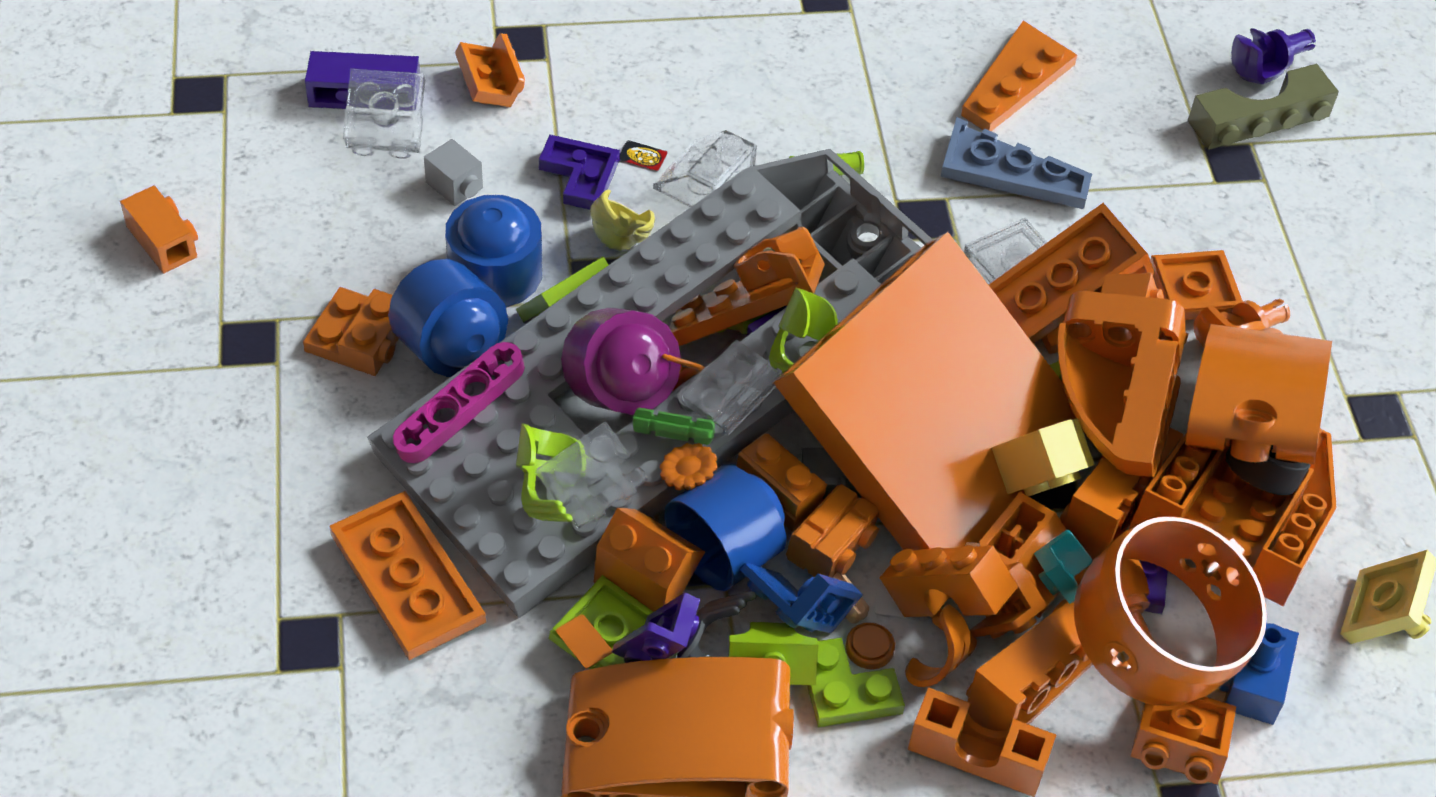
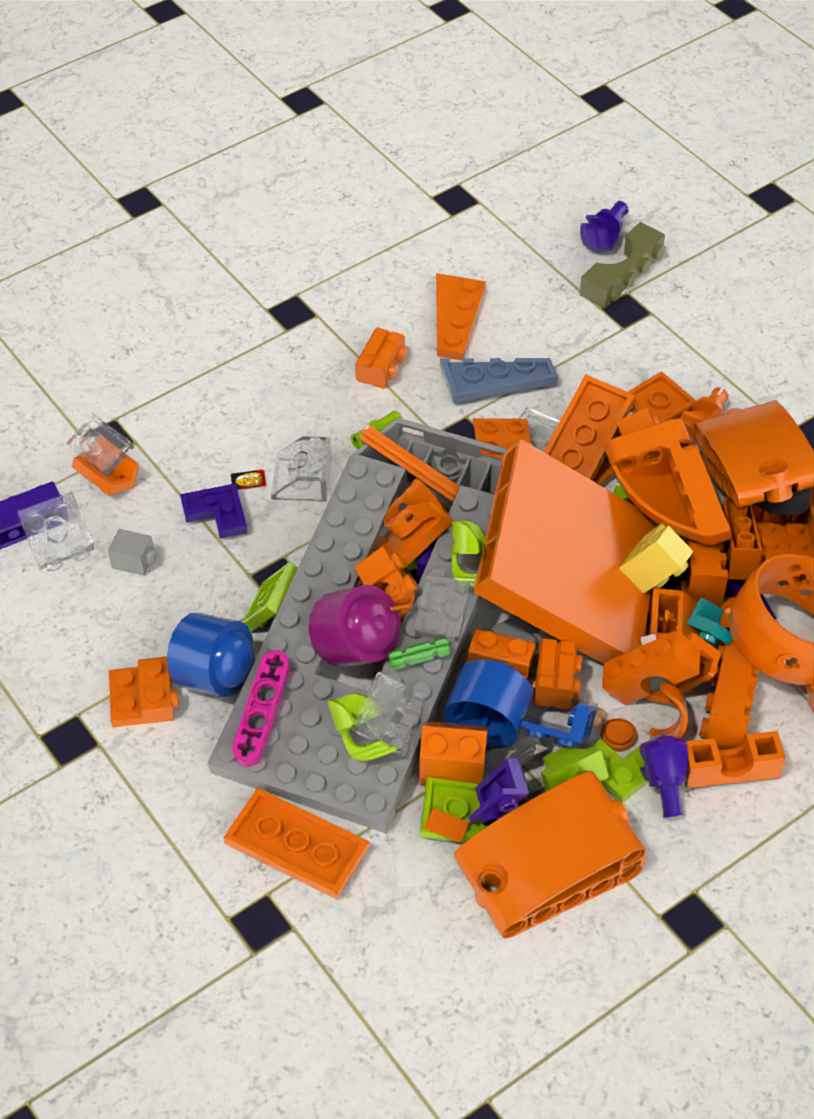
camera: 25 degrees left, 0 degrees up
(494, 40) = (100, 445): none -> clear plate
(499, 244) = (202, 584): blue piece -> none
(618, 225) = (272, 536): light yellow hat -> none
(688, 466) = (446, 675): orange piece -> none
(697, 322) = (387, 572): none -> orange brick
(809, 204) = (410, 462): none -> orange axle
(887, 86) = (381, 358): none -> orange brick
(887, 709) = (665, 769): none -> dark purple piece
(975, 235) = (501, 432): none -> orange hinge

